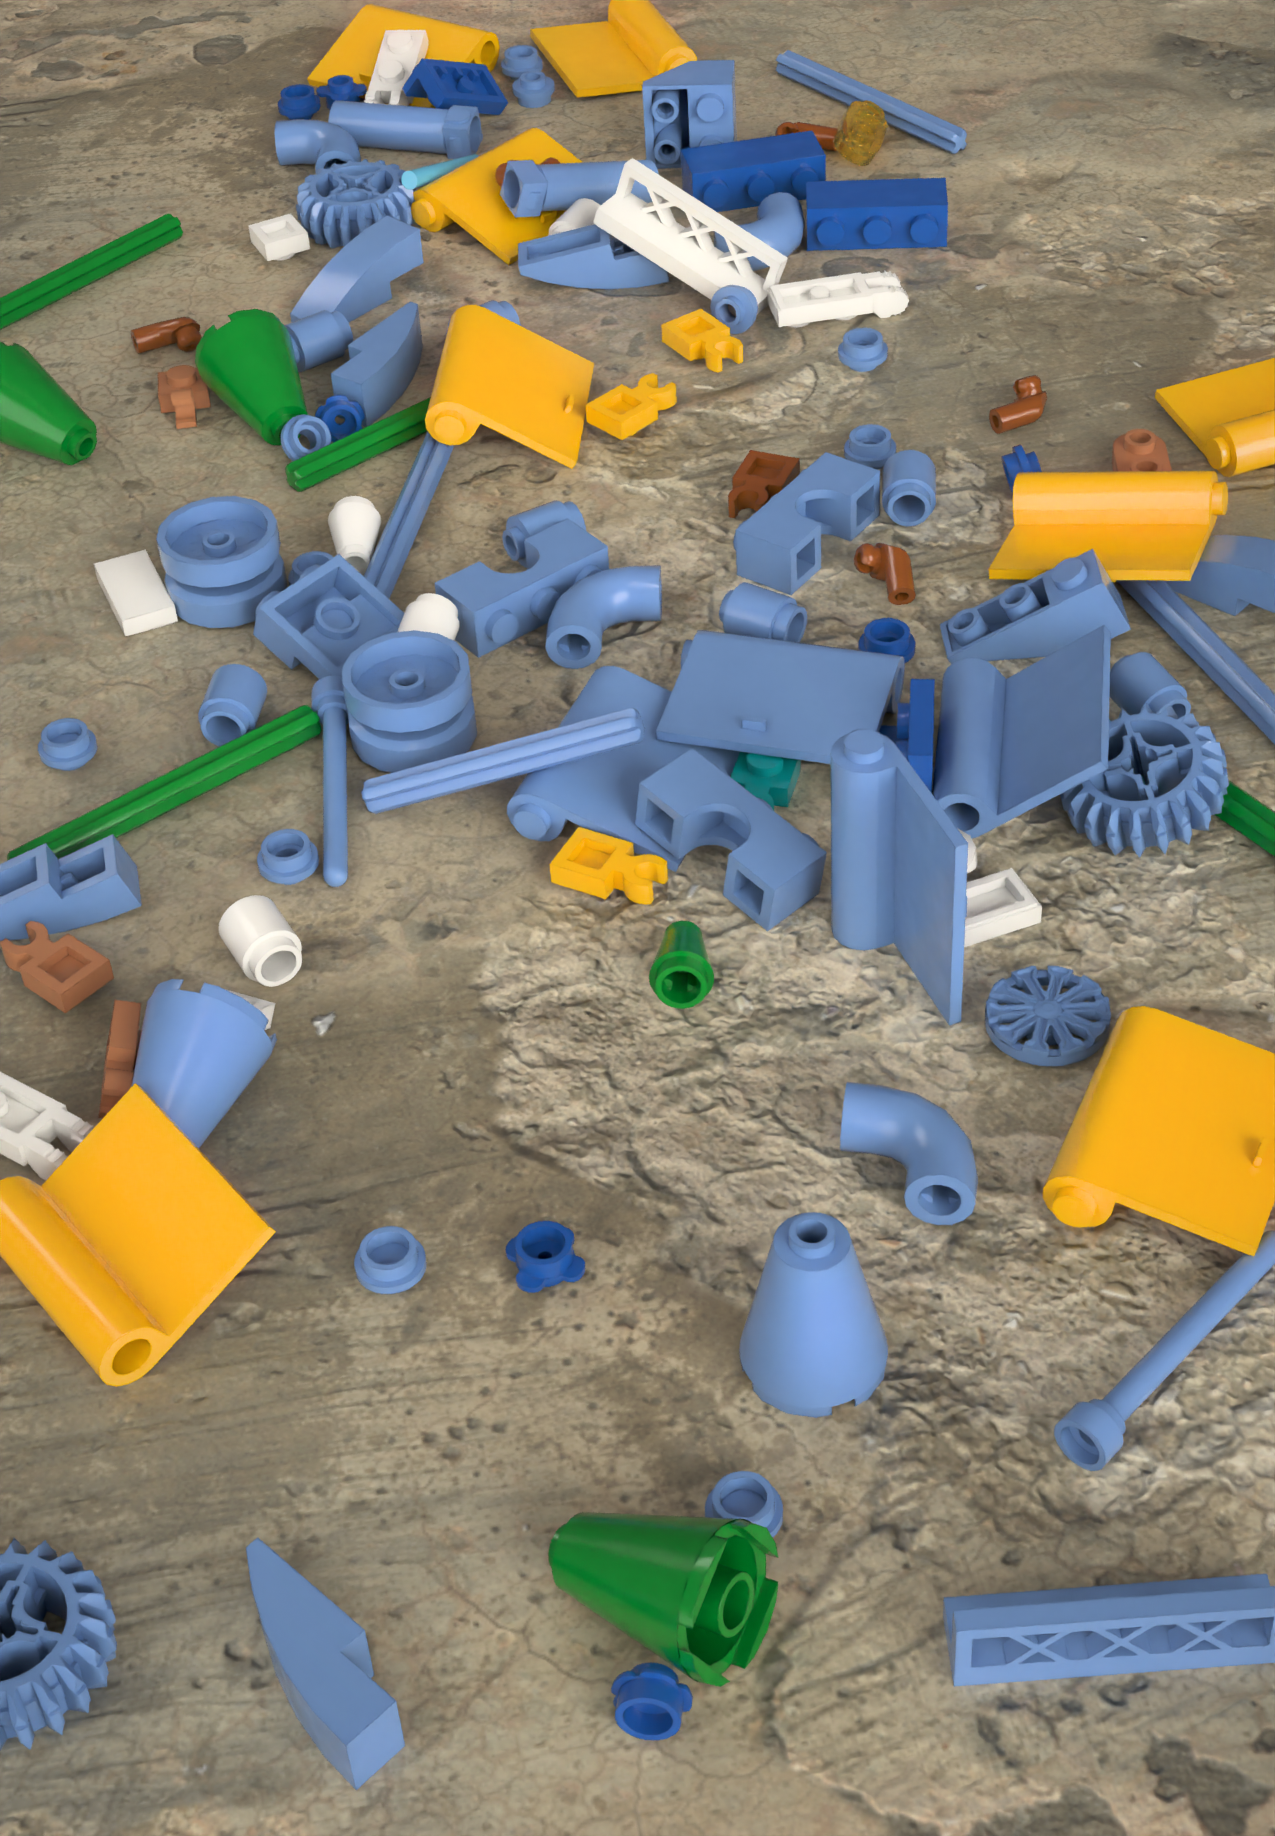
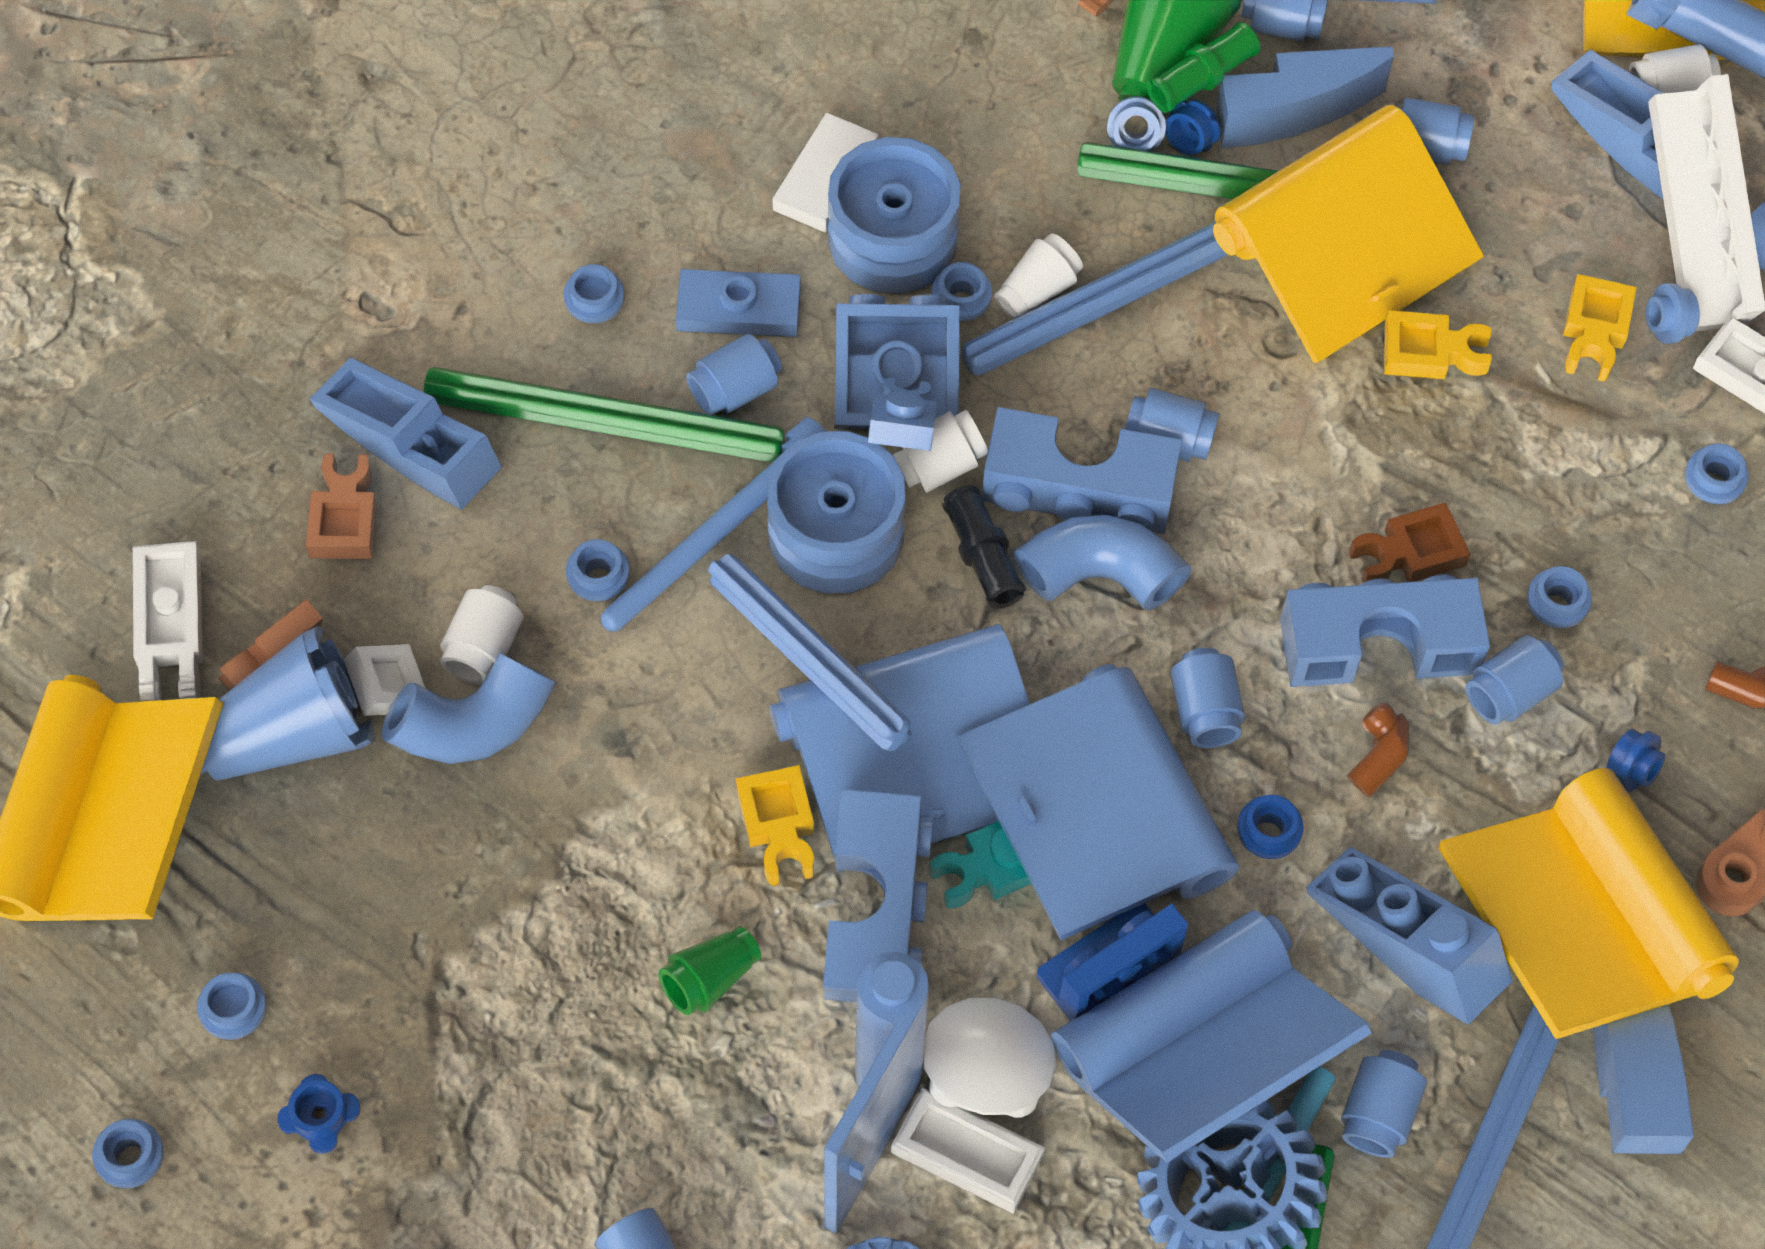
camera: 45 degrees right, 20 degrees up
(170, 684) = (738, 302): none -> medium blue plate
(315, 374) = (1203, 67): none -> green pin
(332, 979) = (470, 726): none -> medium blue cylinder
(389, 613) = (903, 416): none -> medium blue plate
(440, 1386) = (117, 1138): none -> medium blue plate
(522, 662) = (983, 547): none -> black pin

